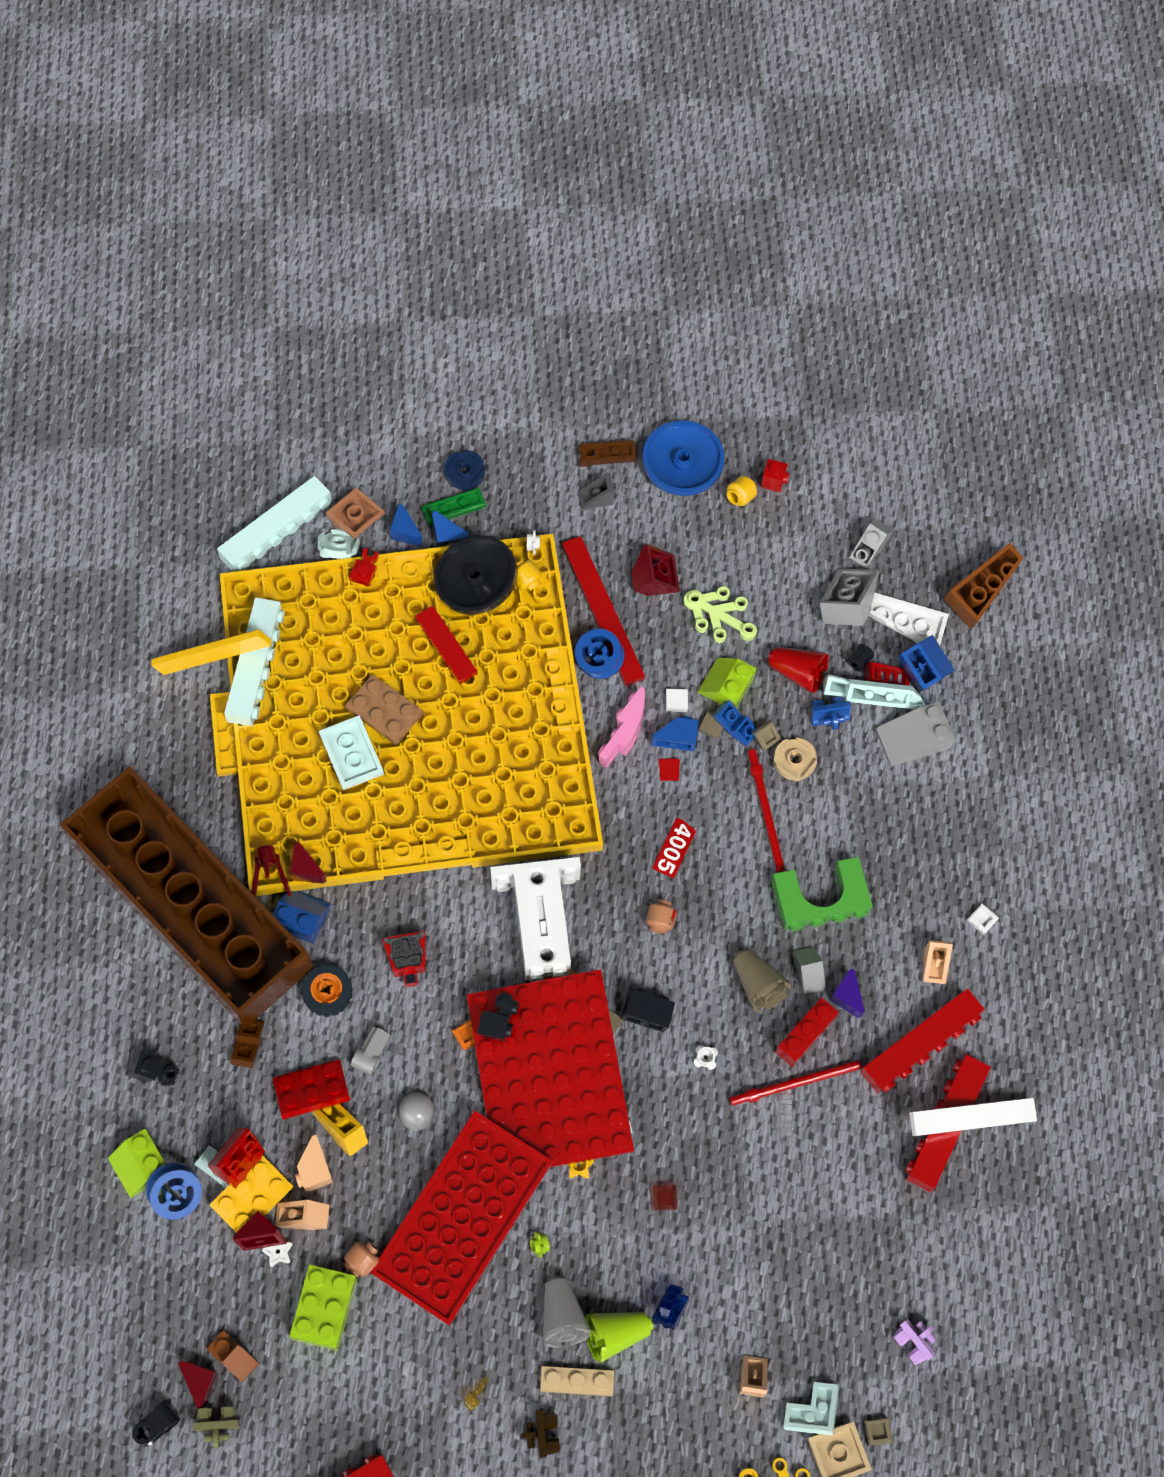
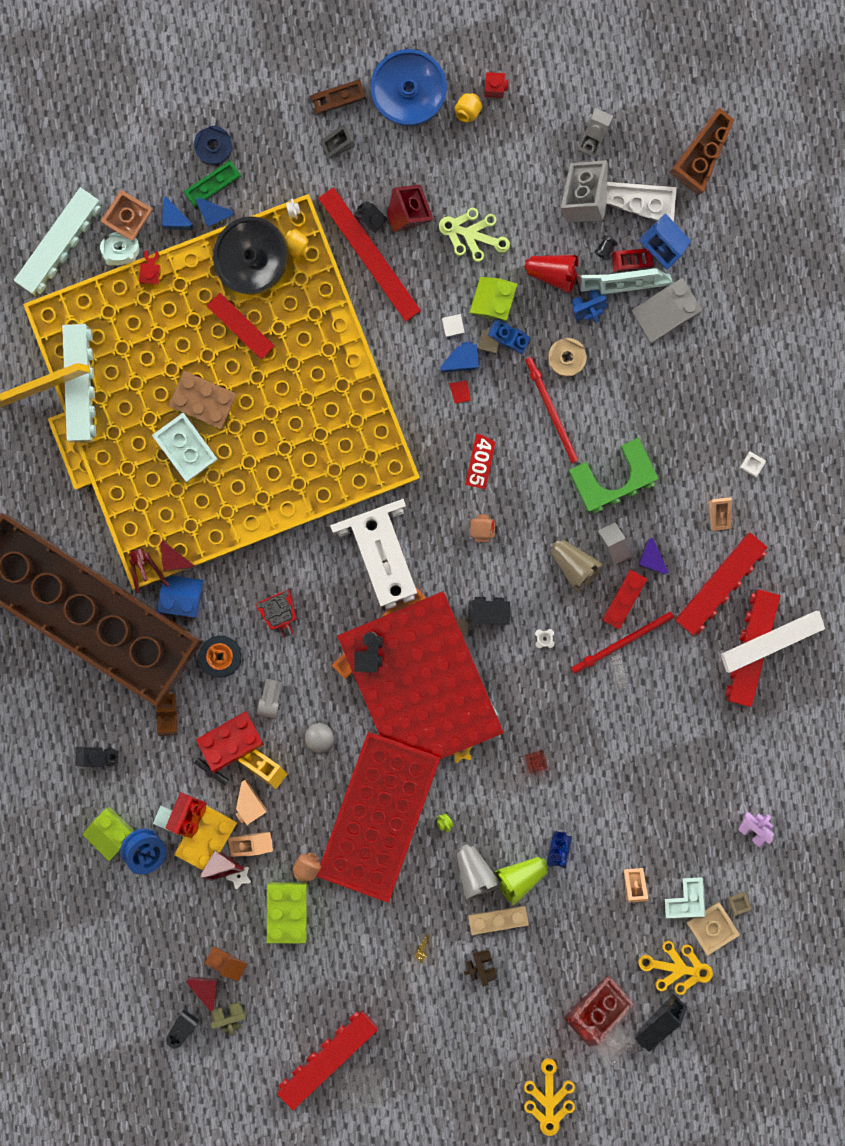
camera: 10 degrees left, 20 degrees up
(277, 1119) = (204, 766): none -> black bar
(592, 644) = (364, 292): blue wheel -> none
(613, 572) = (370, 216): none -> black bracket
(628, 727) = (417, 356): bright pink slope -> none
(766, 735) = (538, 341): dark tan tile -> none

